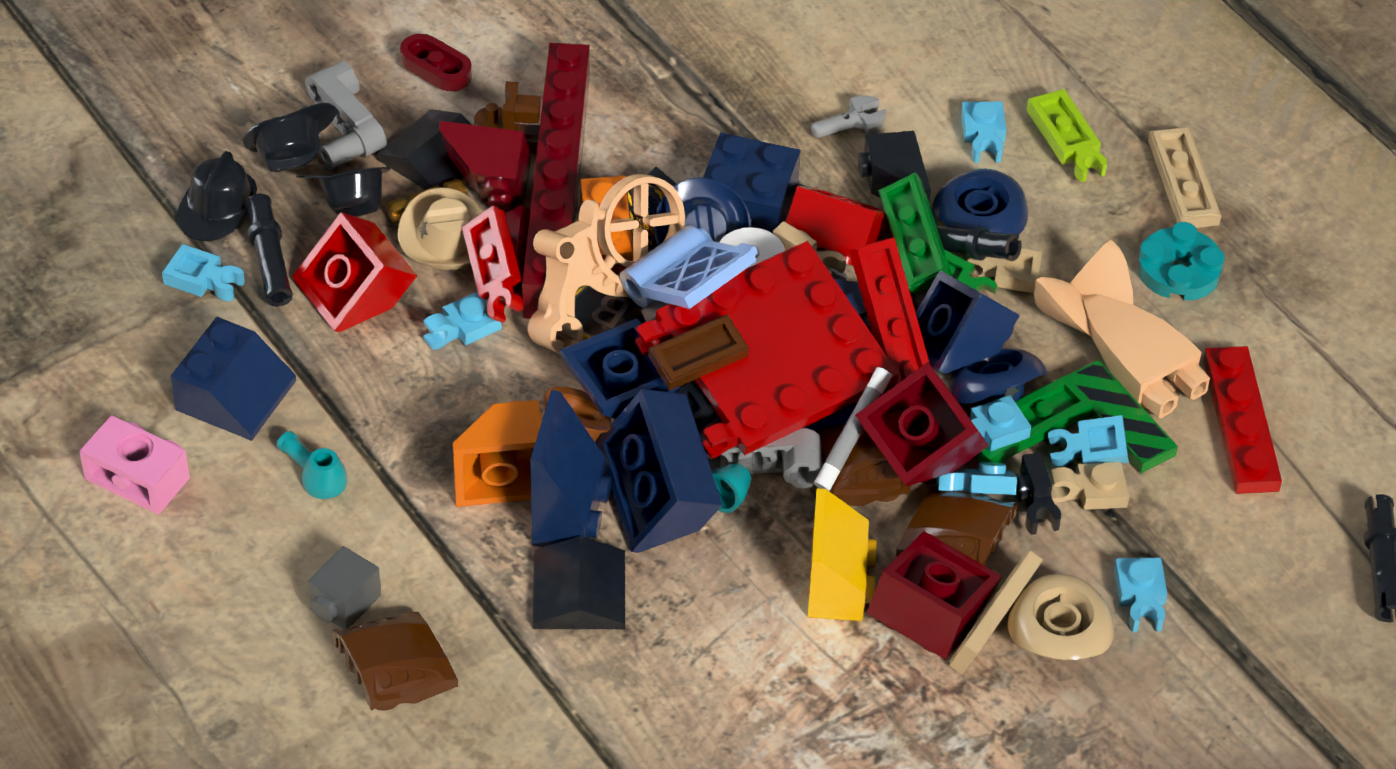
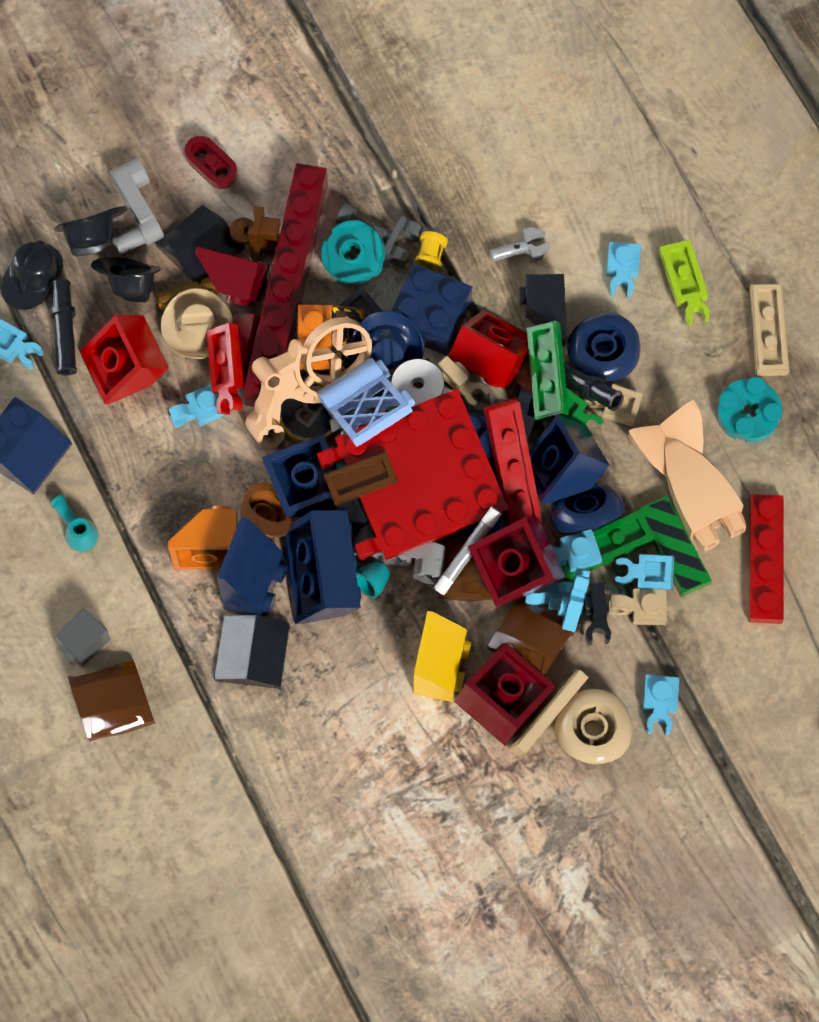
camera: 10 degrees right, 20 degrees up
(643, 156) = (368, 262): none -> teal plate
(687, 136) = (394, 254): none -> dark grey bar
(738, 120) = (431, 250): none -> yellow bush
(1005, 474) = (571, 606): none -> medium azure plate

